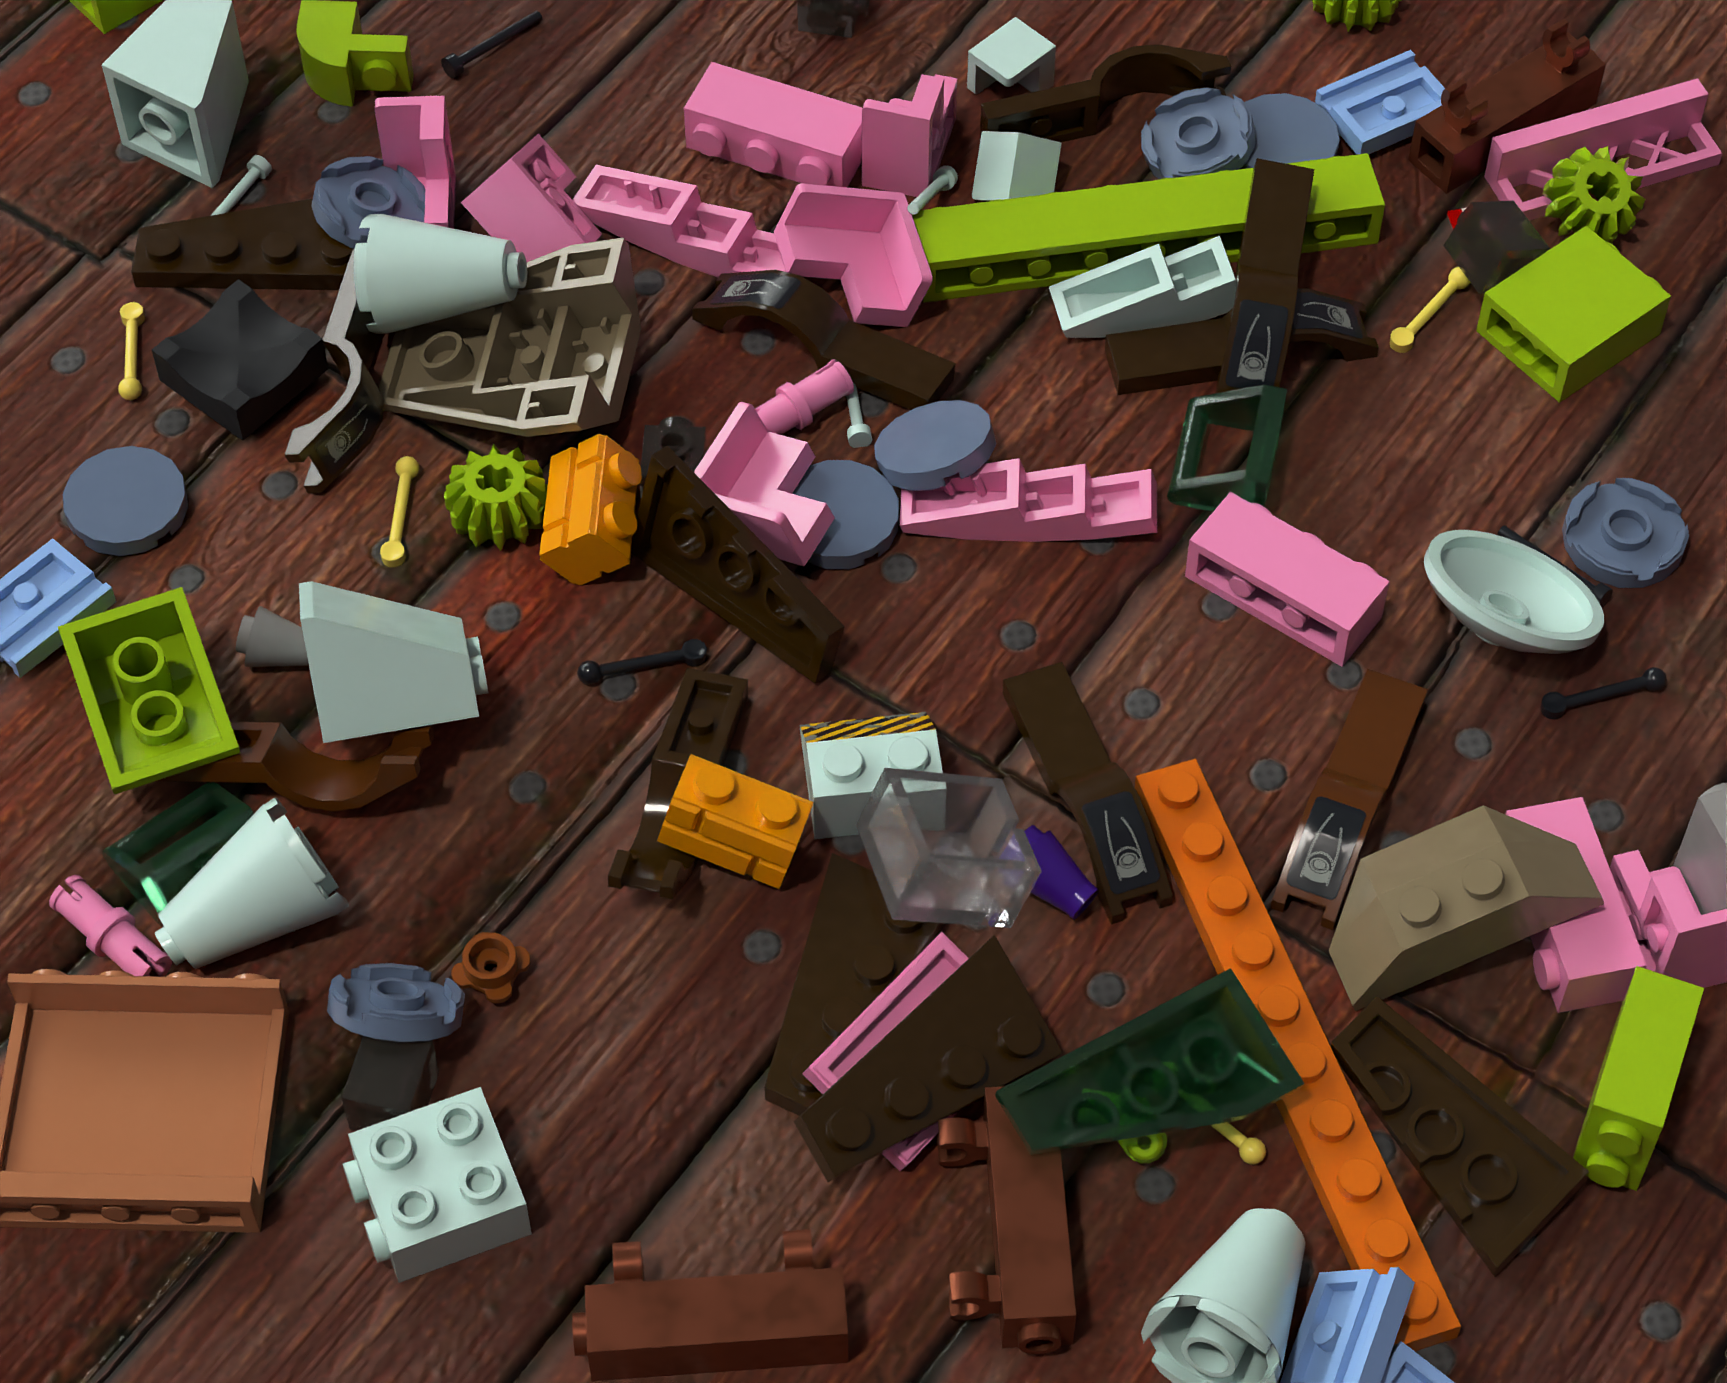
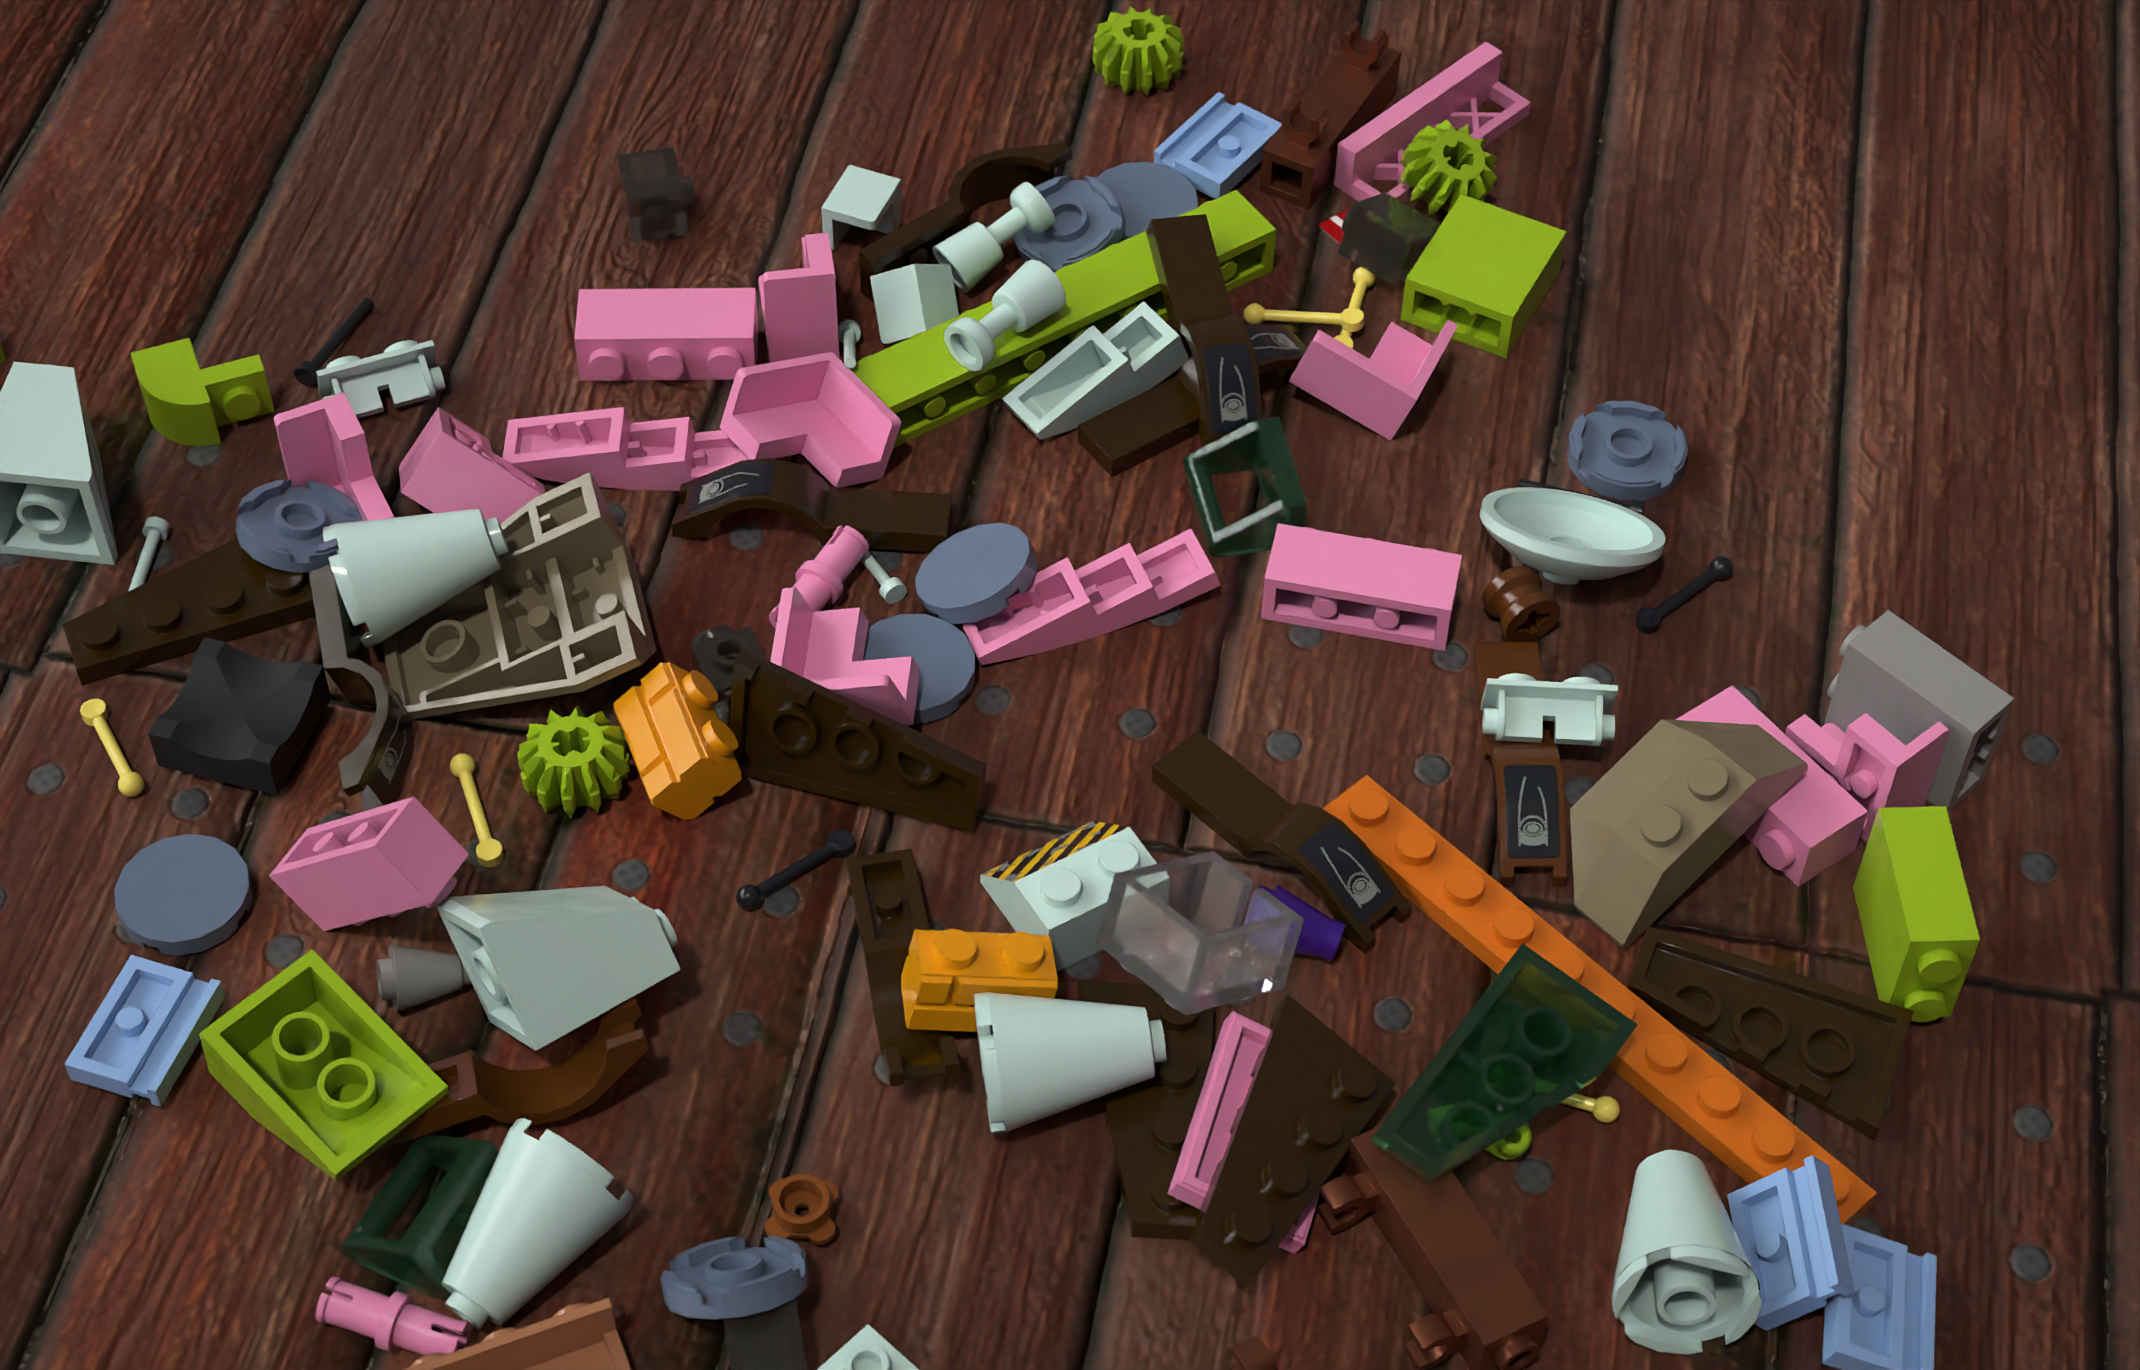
camera: 25 degrees left, 5 degrees down
(266, 531) = (371, 865): none -> bright pink brick
(531, 88) = (403, 369): none -> light aqua hinge
(762, 911) = (1059, 1054): none -> light aqua cone
(1092, 202) = (1019, 304): none -> light aqua piece
(1094, 135) = (977, 248): none -> light aqua piece
(1404, 392) = (1375, 389): none -> bright pink panel
(1415, 763) = (1519, 704): none -> light aqua hinge
(1421, 315) = (1350, 319): none -> light yellow hinge
(1430, 648) = (1521, 604): none -> reddish brown wheel

